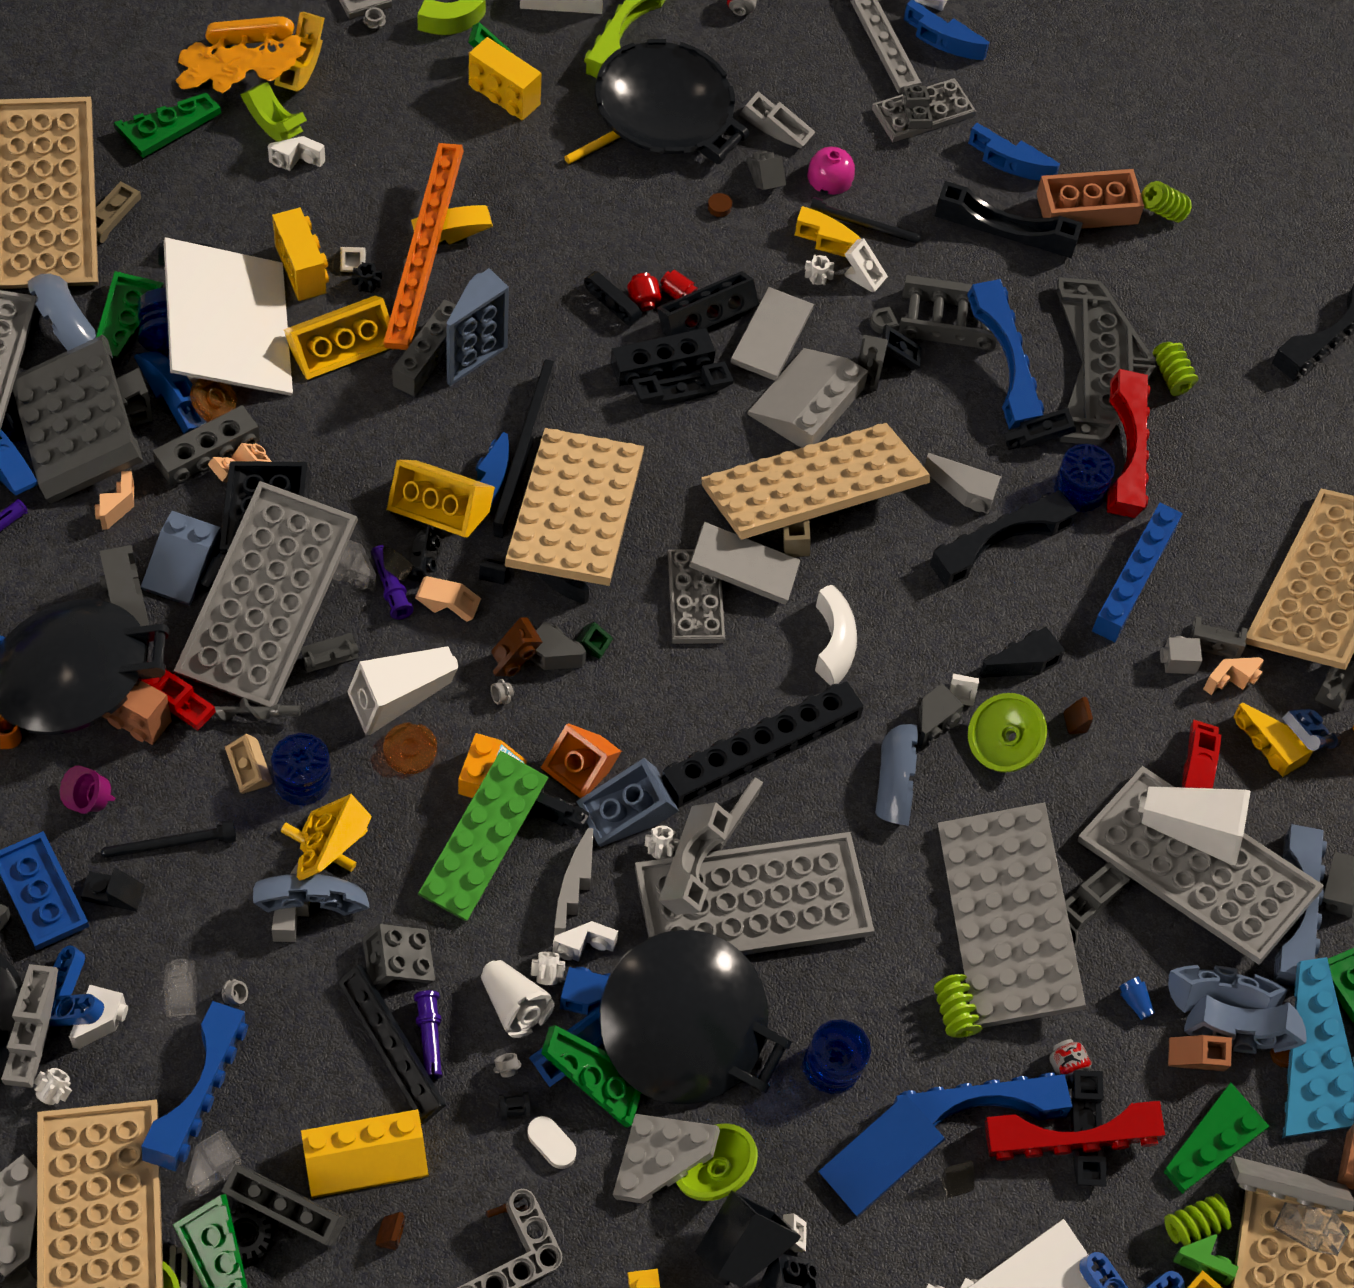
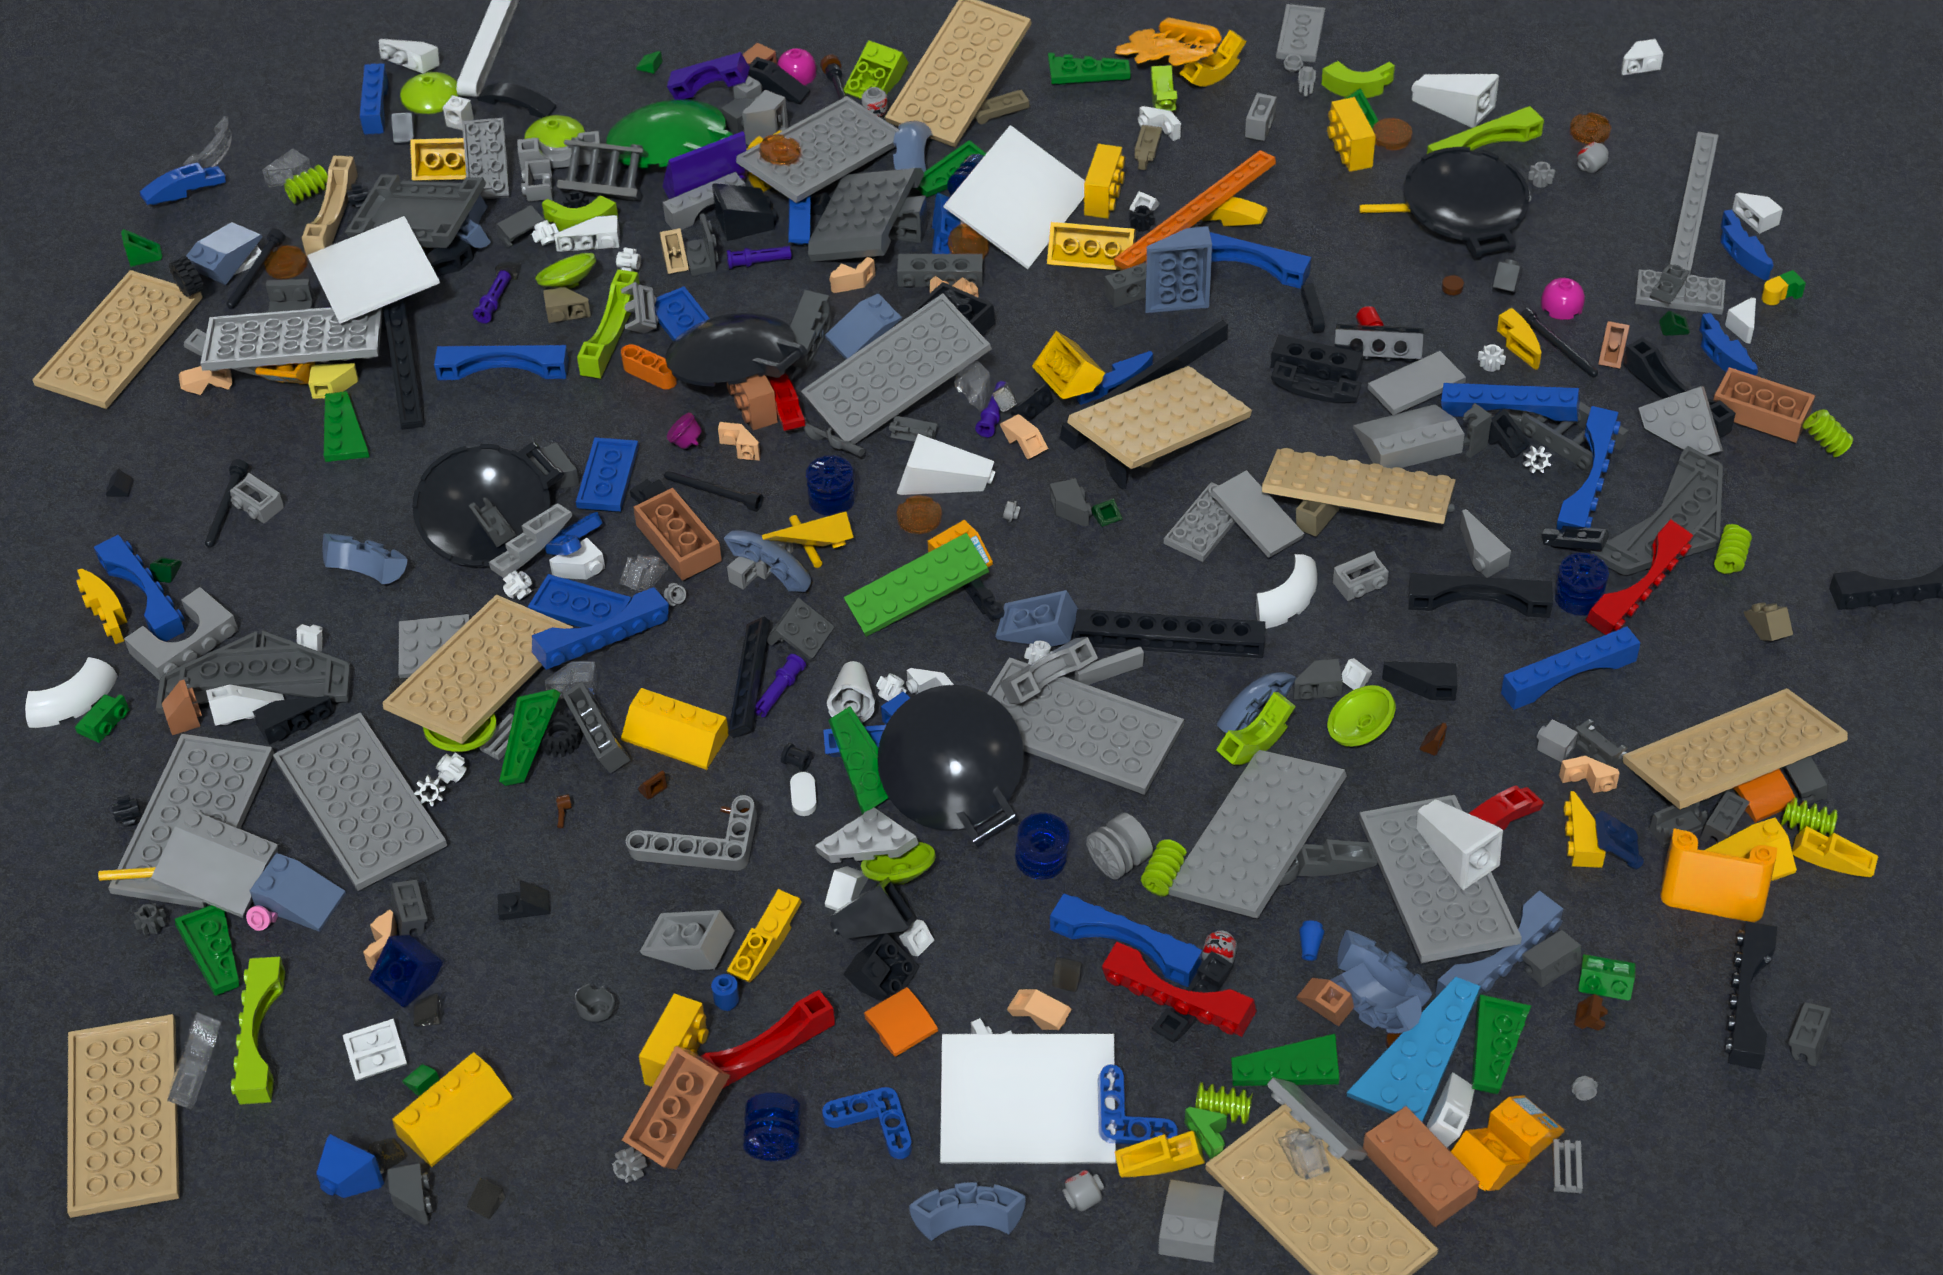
camera: 45 degrees right, 10 degrees down
(139, 1067) = (576, 602): none -> blue plate
(169, 769) = (738, 435): none -> light nougat slope
(182, 920) = (677, 534): none -> nougat brick
(248, 764) = (797, 475): tan slope -> none
(303, 186) = (1147, 145): none -> dark tan hinge
(397, 99) = (1260, 117): none -> light grey brick
(402, 31) = (1307, 79): none -> light grey piece
(507, 1064) = (813, 731): light grey plate -> none
(515, 648) = (1039, 485): reddish brown bracket -> none
(536, 53) = (1392, 133): none -> clear orange tile
(552, 263) = (1286, 266): none -> blue arch
(575, 879) = (960, 645): light grey slope -> none
(580, 759) = (1028, 575): orange slope -> none
(644, 291) = (1339, 311): red head -> none
(680, 1222) = (844, 887): none -> white slope
(710, 39) = (1541, 174): none -> light grey gear
(776, 121) = (1546, 248): light grey slope -> none
(864, 266) = (1530, 367): white slope -> none
(878, 595) = (1363, 584): none -> light grey window
(881, 1155) = (1020, 924): blue tile -> none
(907, 1010) = (1119, 845): none -> light grey wheel
(912, 298) = (1552, 402): none -> blue arch
(915, 198) = (1614, 344): none -> nougat slope
(930, 805) = (1261, 734): none -> lime arch
(943, 361) = (1543, 461): none -> white gear
(944, 149) = (1674, 324): none -> dark green slope
(964, 1232) = (1043, 1009): none -> light nougat slope
(1005, 115) = (1741, 319): none -> white slope
(1012, 57) = (1782, 287): none -> leg
(1040, 254) = (1683, 421): none -> light grey plate
(1258, 427) = (1769, 621): none -> dark tan slope

